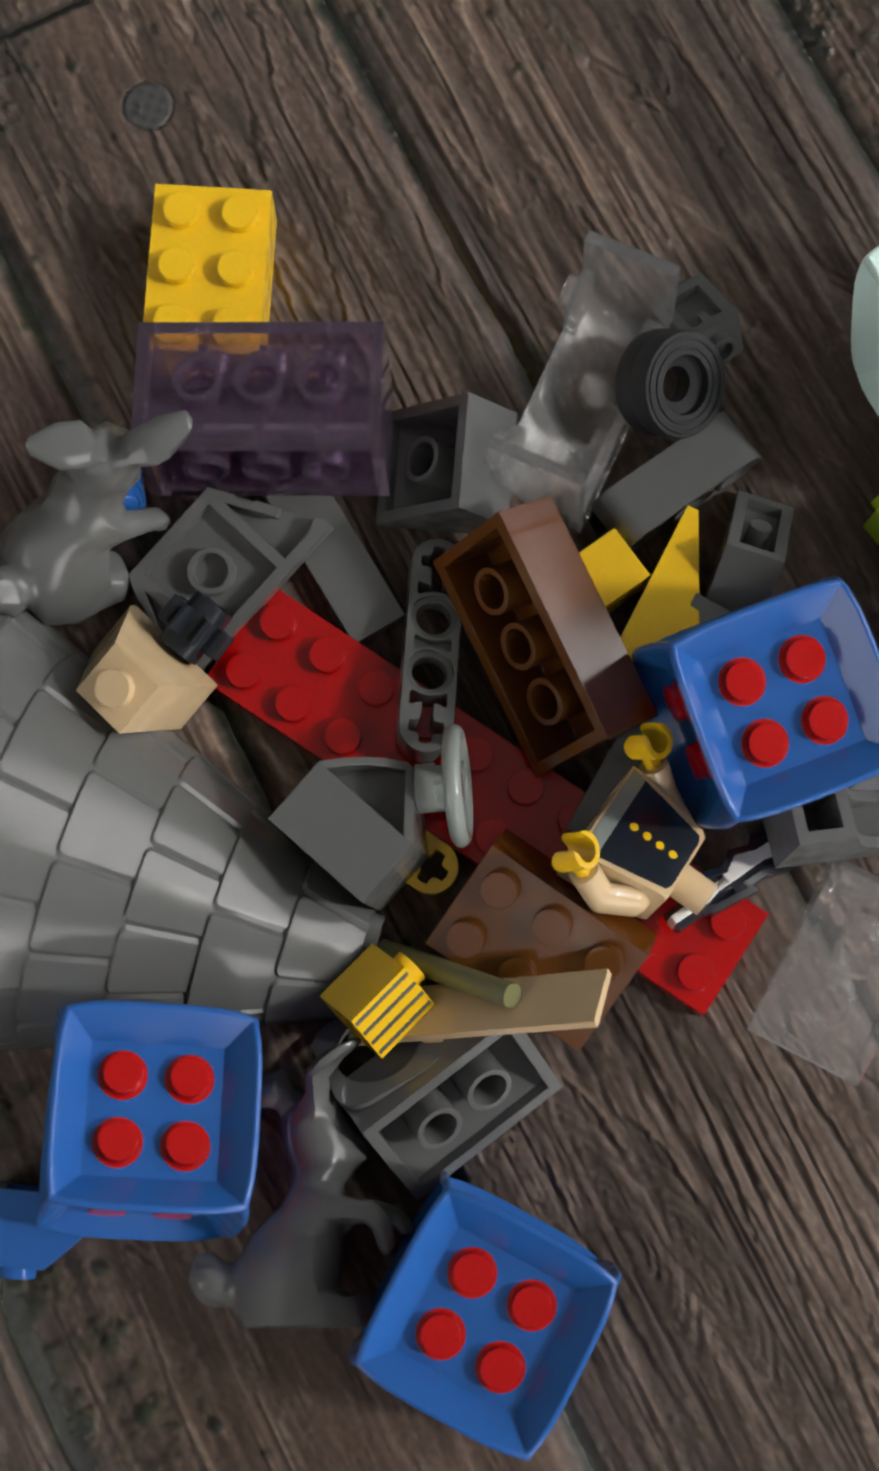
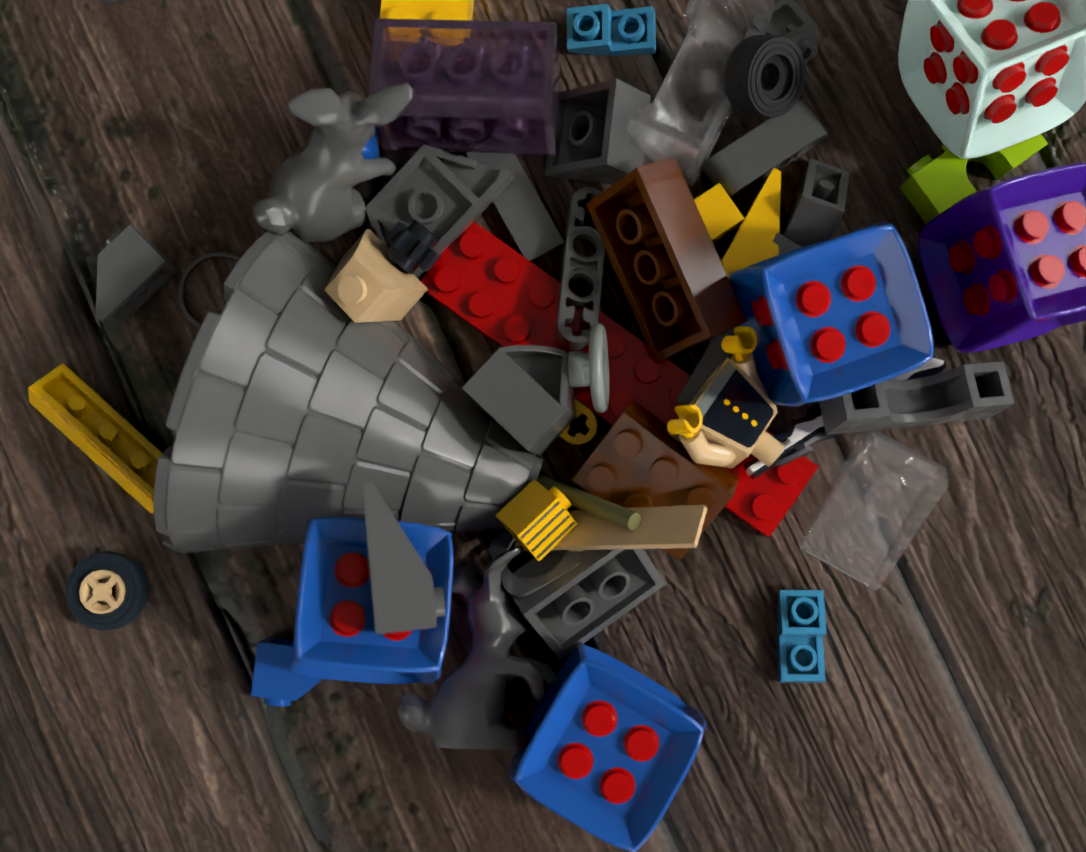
camera: 10 degrees right, 5 degrees up
(188, 1080) = (399, 578): none -> dark grey slope
(460, 328) = (611, 33): none -> dark azure slope
(754, 1154) = (800, 636): none -> dark azure slope

